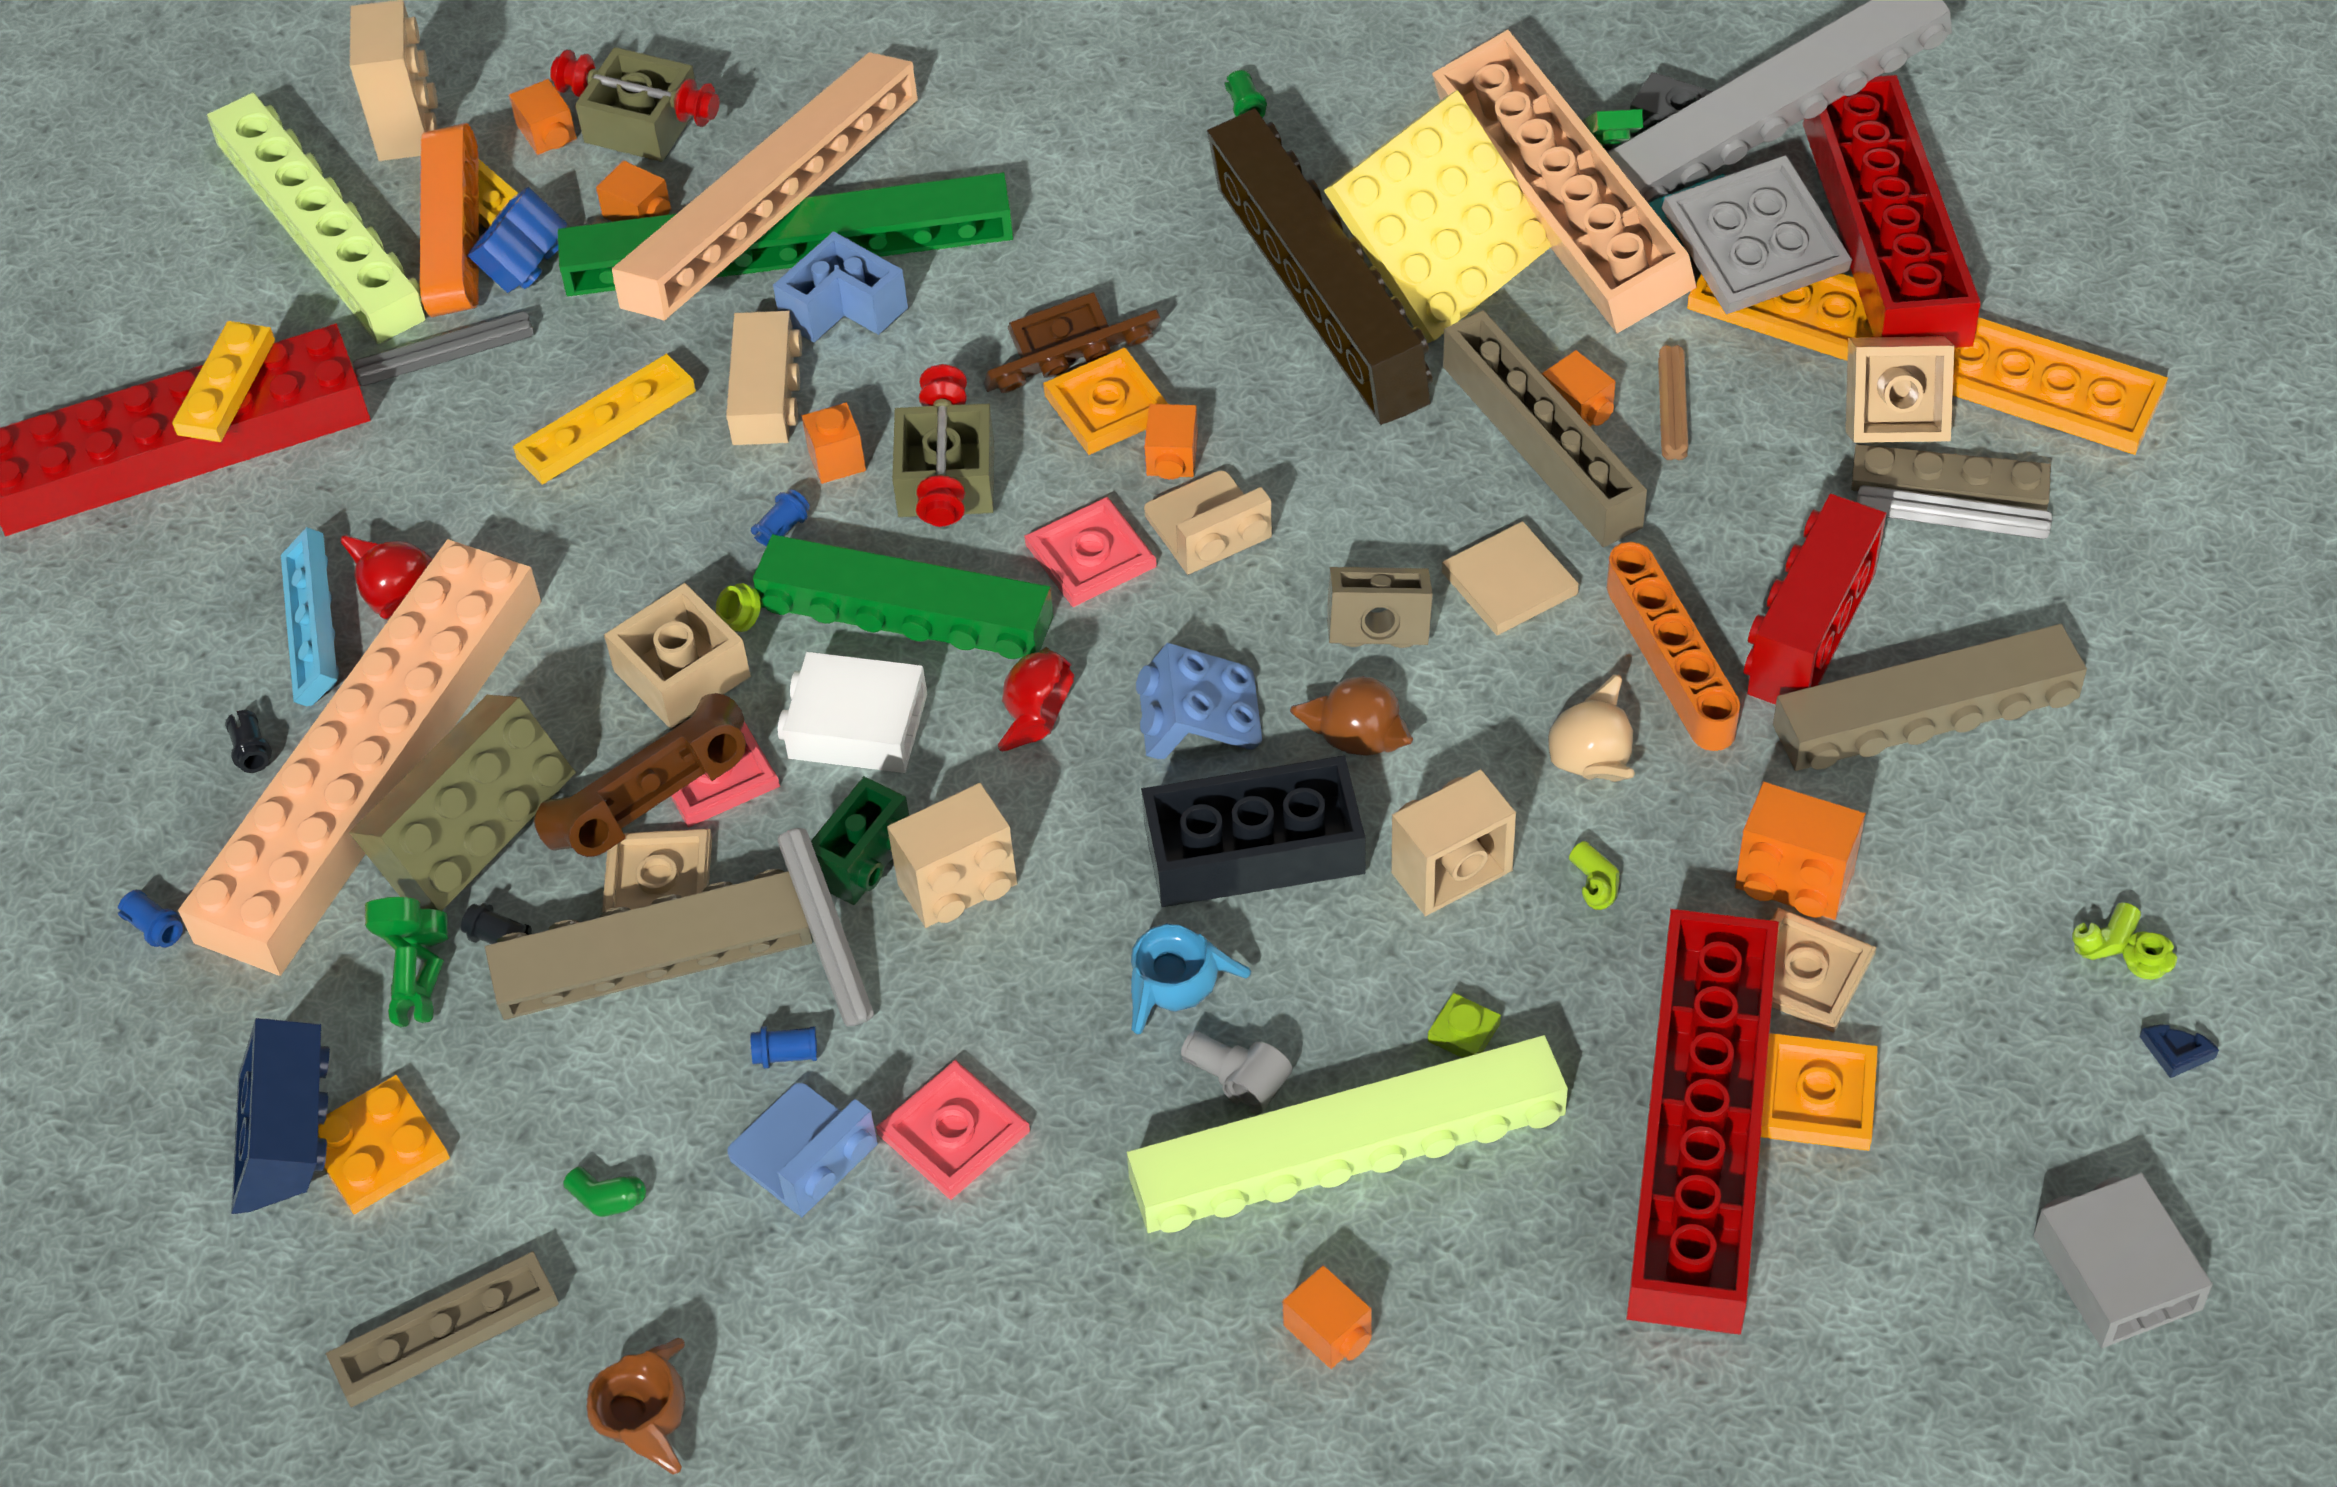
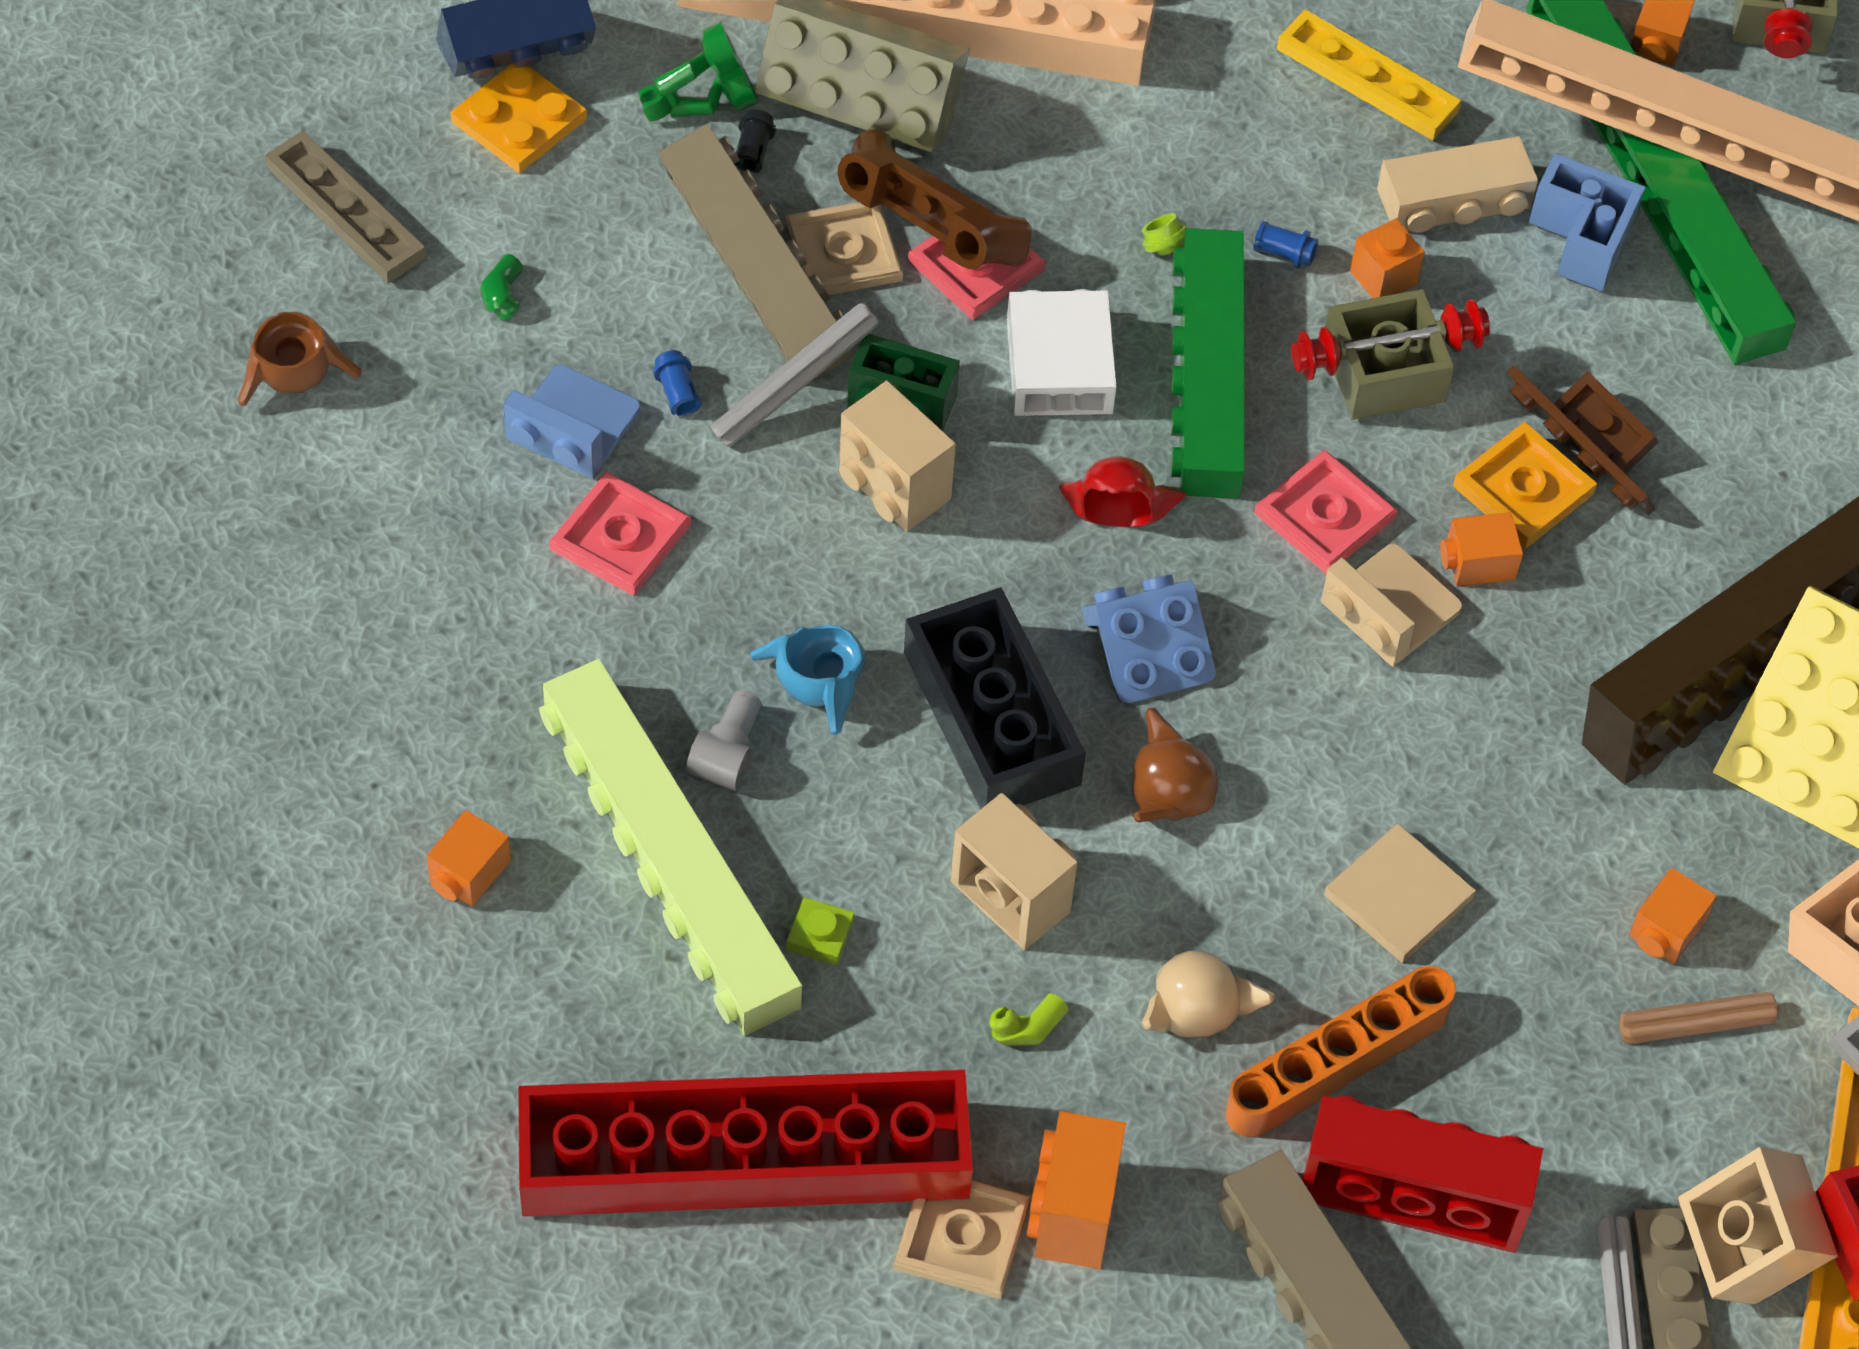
camera: 70 degrees right, 5 degrees up
(677, 654) = (1082, 194): tan brick -> none
(1359, 590) = (1307, 765): dark tan brick -> none
(1544, 429) = (1599, 883): dark tan brick -> none
(1819, 1092) = (807, 1253): light orange plate -> none

